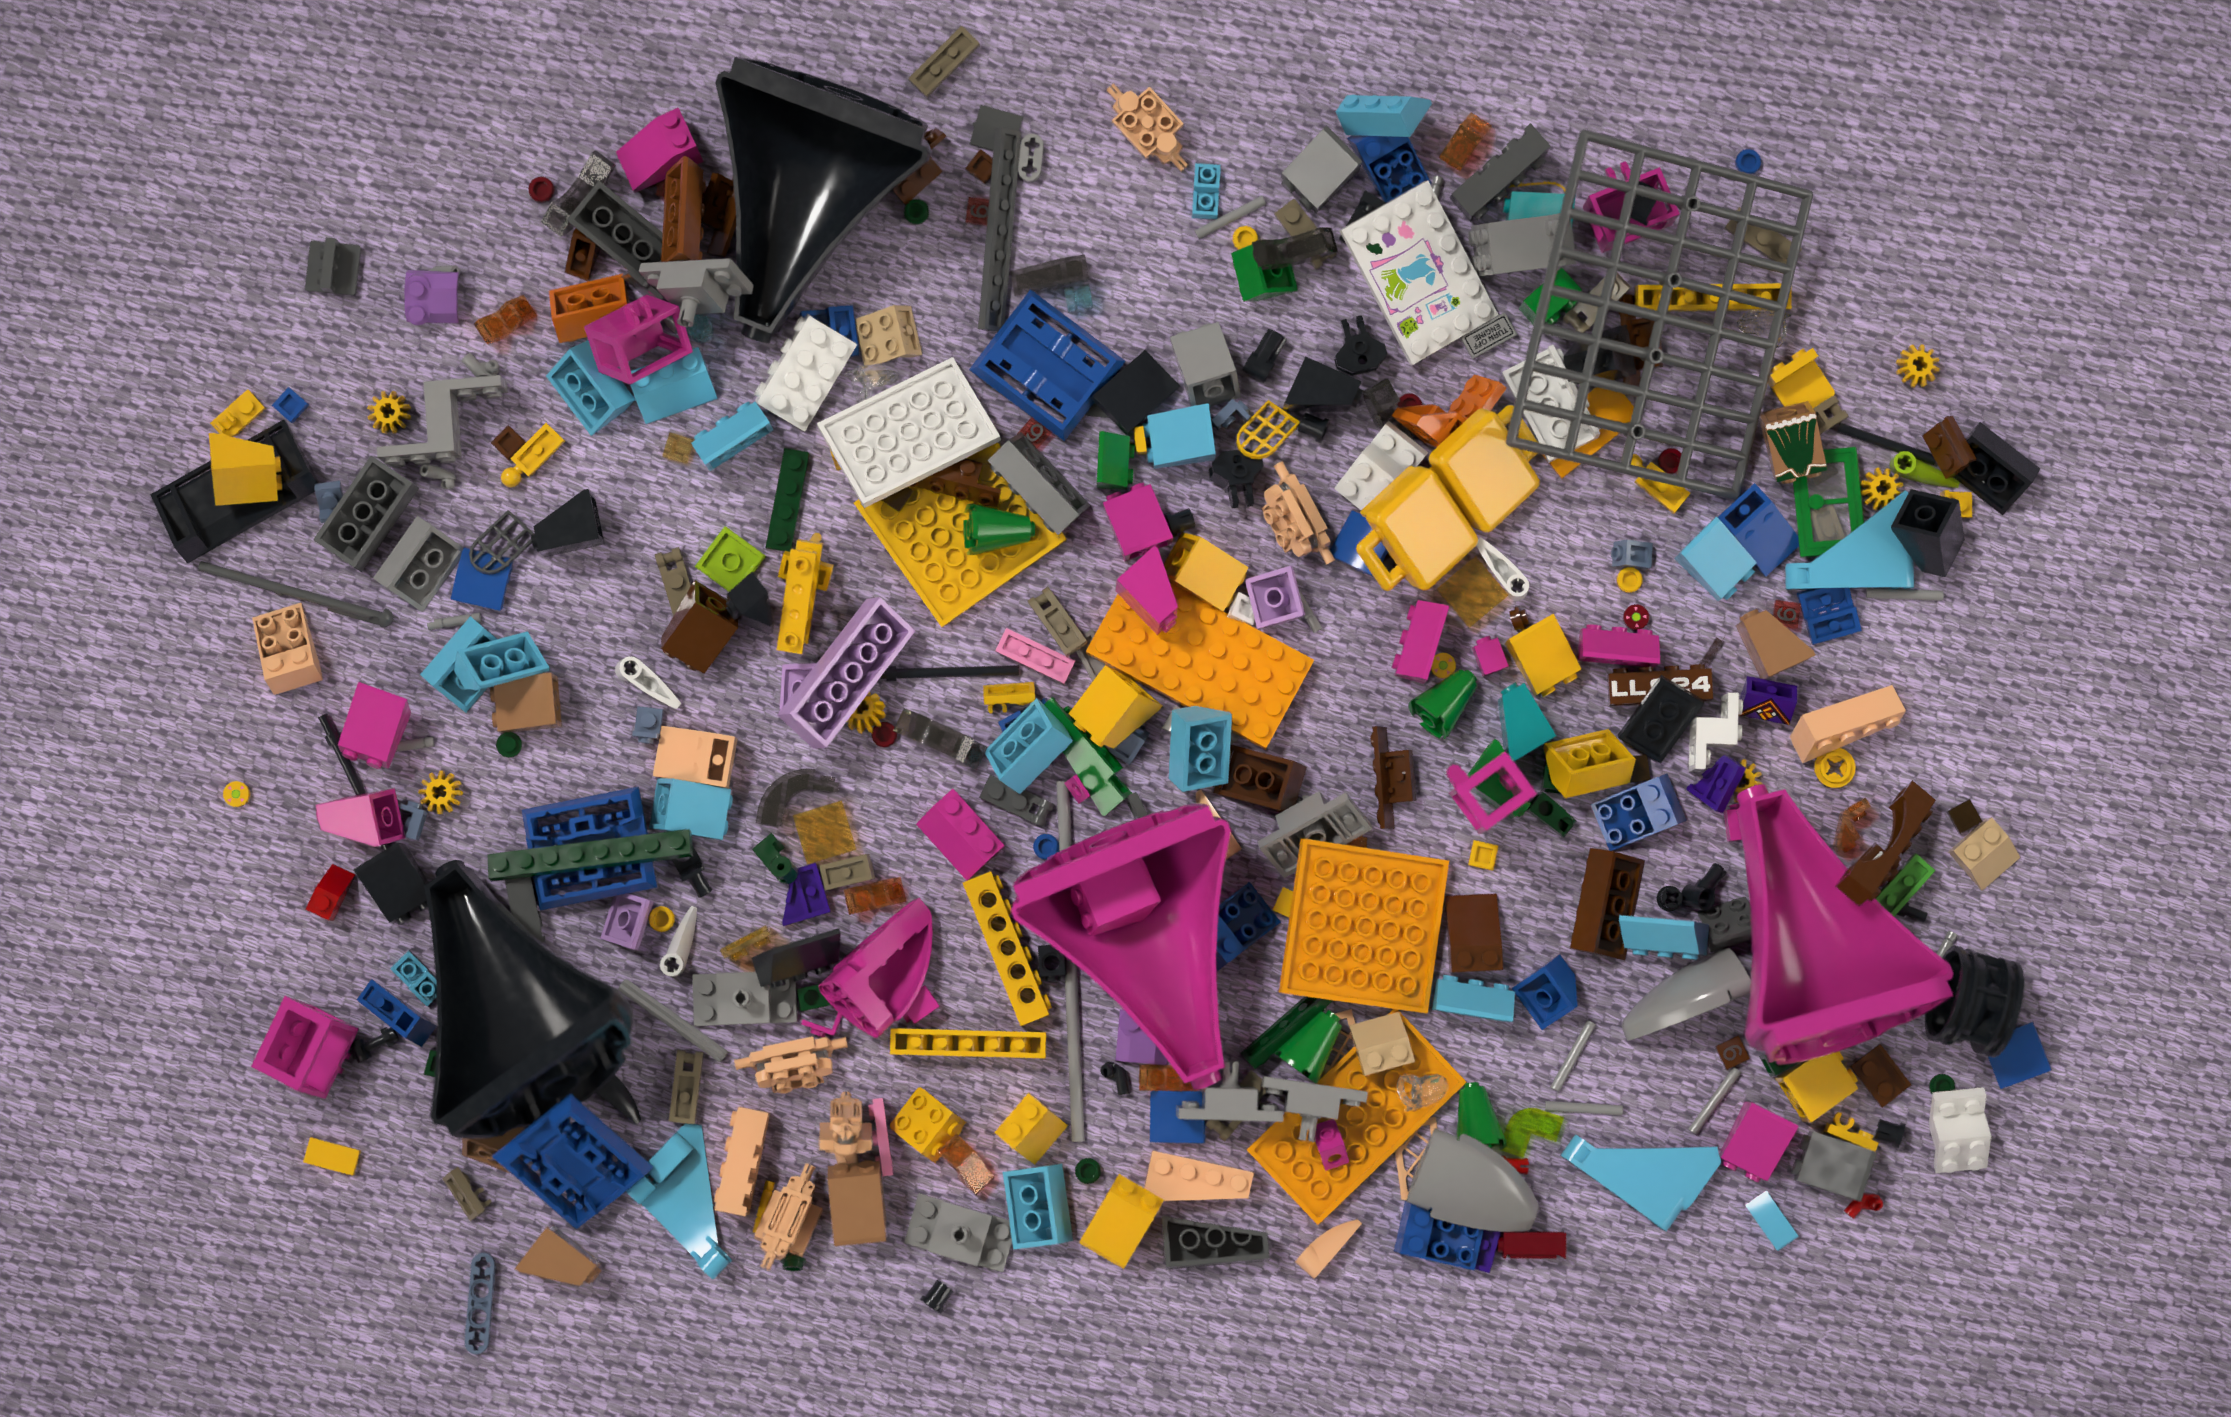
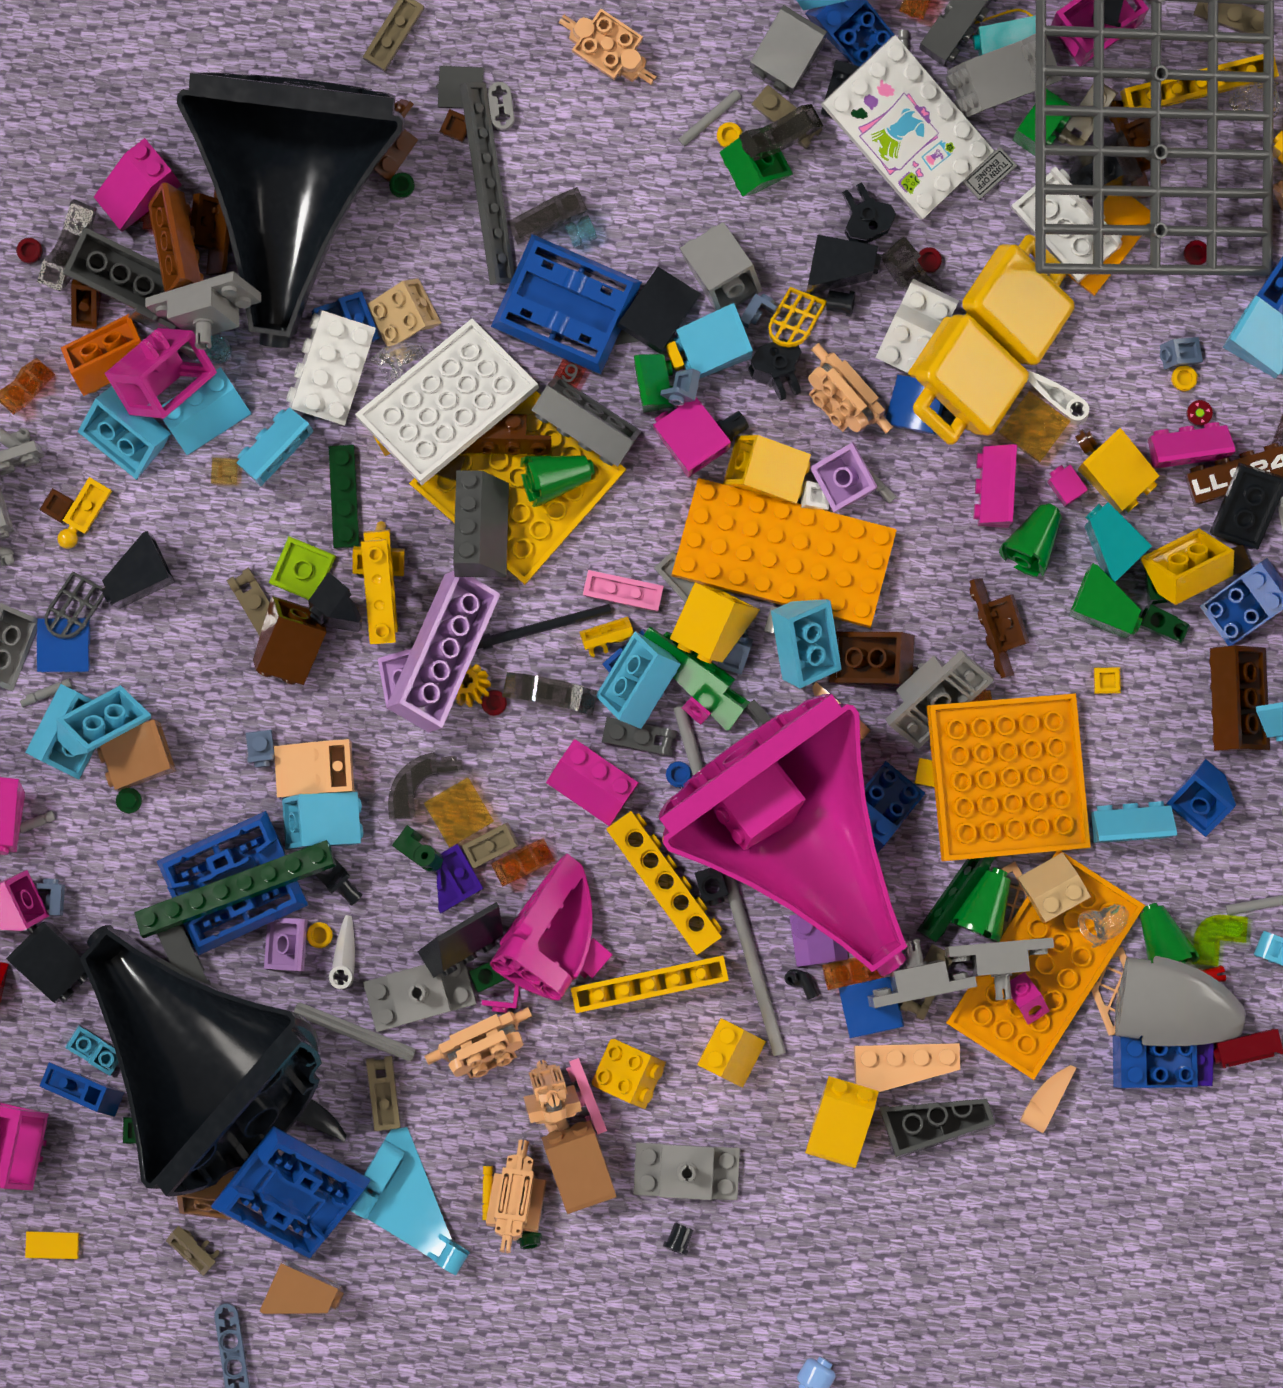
camera: 10 degrees left, 0 degrees up
(361, 1050) = (56, 1134): black bar -> none
(440, 783) = (76, 871): yellow gear -> none
(646, 681) = (248, 705): white piece -> none
(739, 948) = (419, 932): clear yellow plate -> none
(742, 1161) = (456, 1153): light nougat wedge -> none
(911, 560) = (480, 525): none -> dark grey slope
(967, 1163) = (677, 1102): clear orange slope -> none
(977, 211) = (461, 170): clear red tile -> none
(1037, 1206) = (756, 1127): medium azure slope -> none
(1058, 622) = (637, 552): dark tan plate -> none
(1087, 1170) = (796, 1081): dark green plate -> none
(1141, 474) = (684, 387): none -> sand blue bracket
(1149, 592) = (721, 501): dark pink slope -> none
(1206, 191) = (680, 98): medium azure slope -> none
(1262, 360) = (775, 249): black piece -> none
(1434, 425) = (959, 272): orange bracket -> none
(1443, 665) = (1024, 505): yellow tile -> none
(1473, 933) = (1116, 758): reddish brown slope -> none
(1510, 778) = (1119, 597): dark pink piece -> none
(1573, 1056) = (1242, 855): light grey bar -> none
(1667, 495) = (1201, 286): yellow plate -> none

